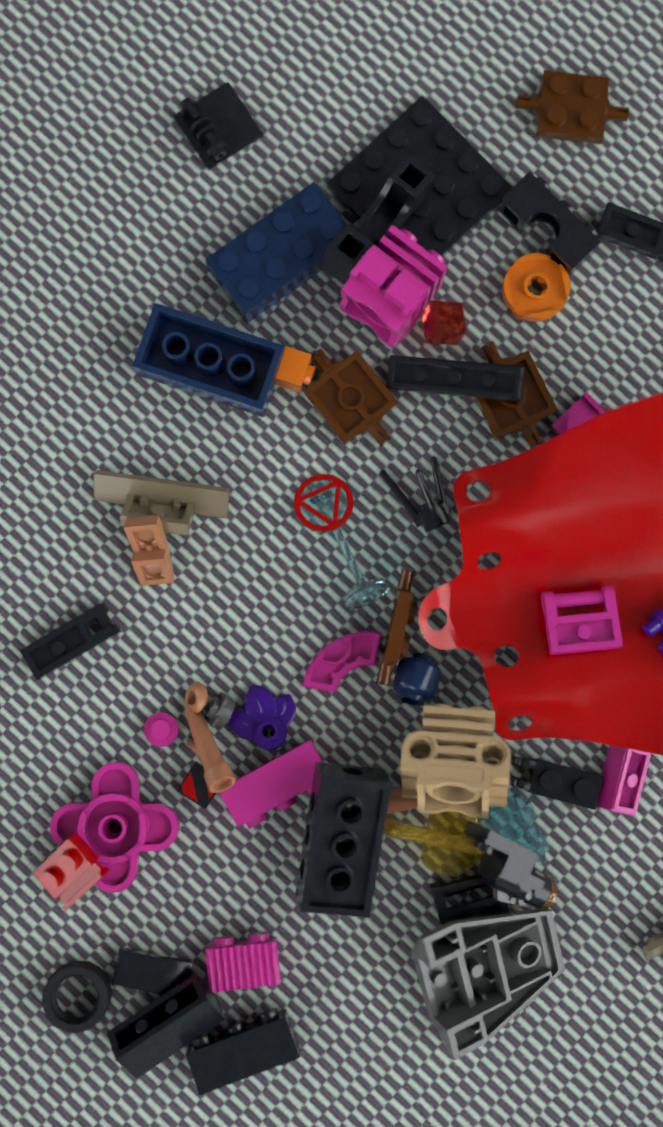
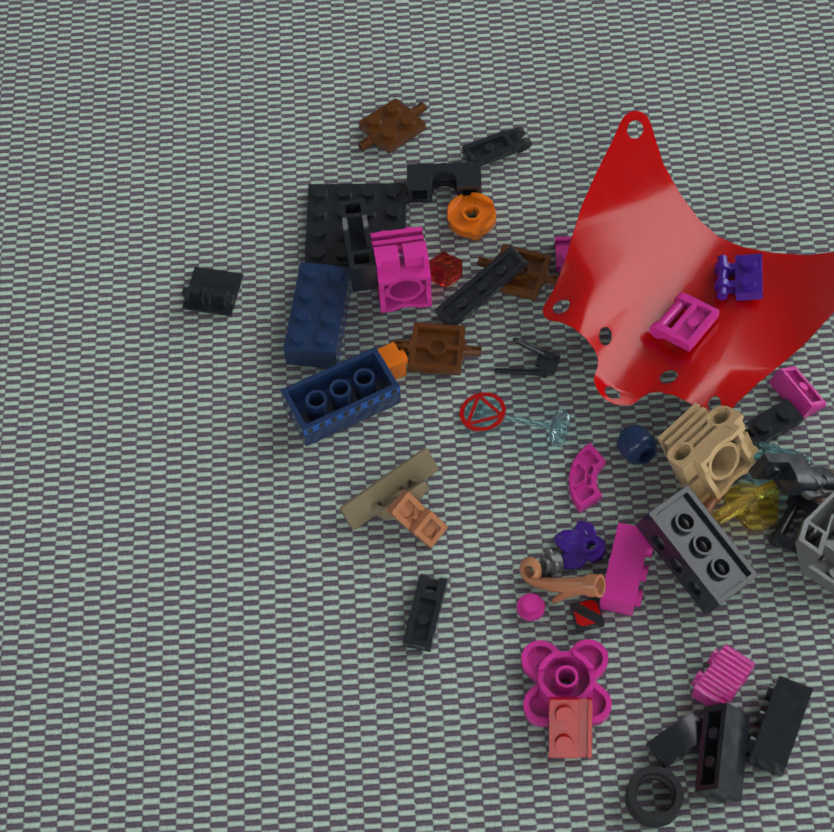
camera: 40 degrees left, 25 degrees down
(402, 614) = (596, 424): reddish brown plate -> none

